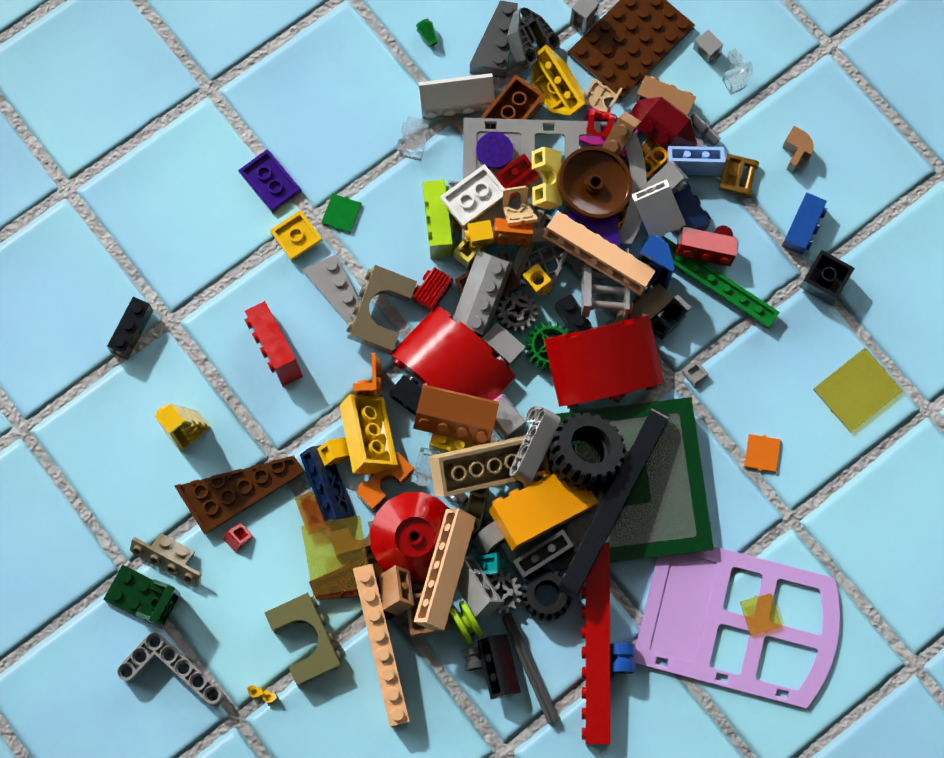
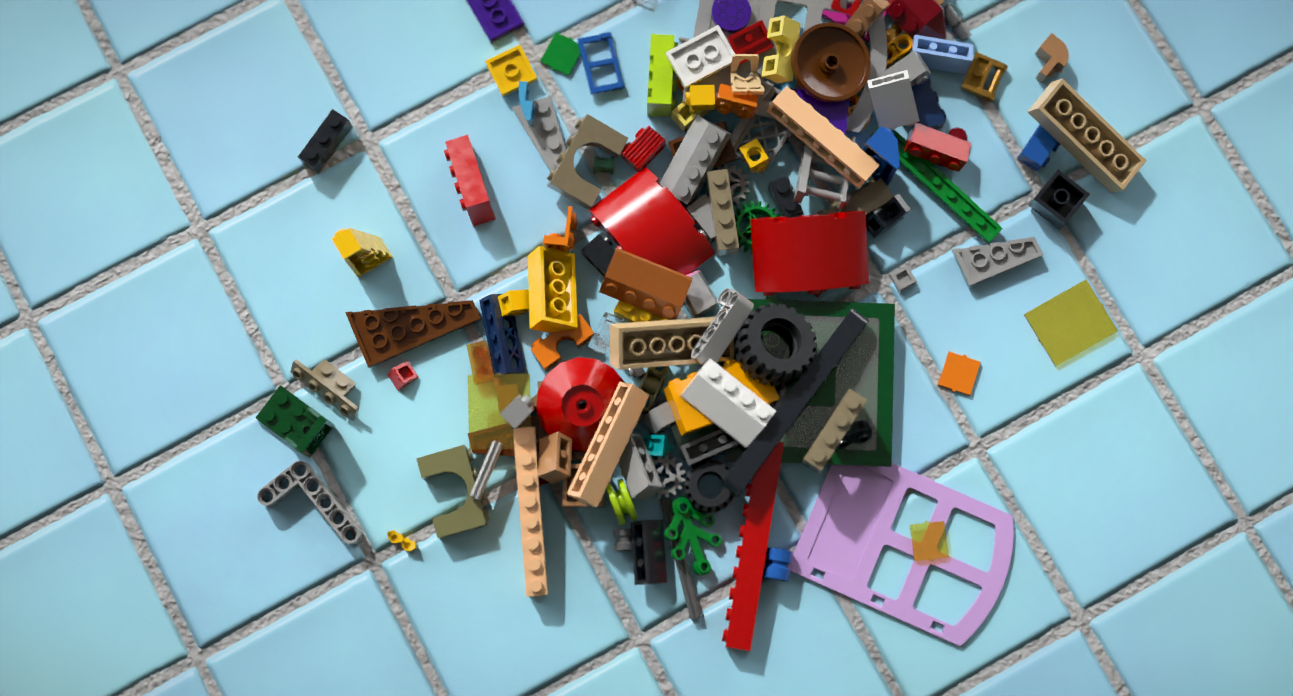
camera: 10 degrees right, 5 degrees up
(317, 266) = (527, 106): none -> dark azure slope
(332, 614) = (486, 470): none -> light grey axle
(354, 551) = (518, 410): none -> light grey brick
(390, 212) = (613, 60): none -> blue window
(397, 310) = (603, 165): none -> clear green bush
(516, 337) = (722, 212): none -> dark tan brick
(535, 642) = (691, 533): none -> green plant
(551, 512) = (727, 403): none -> white slope
(654, 524) = (834, 431): none -> dark tan arch
(678, 522) = (859, 432): none -> black hinge
(777, 341) = (987, 261): none -> light grey wing
(842, 215) = (1087, 136): none -> tan brick

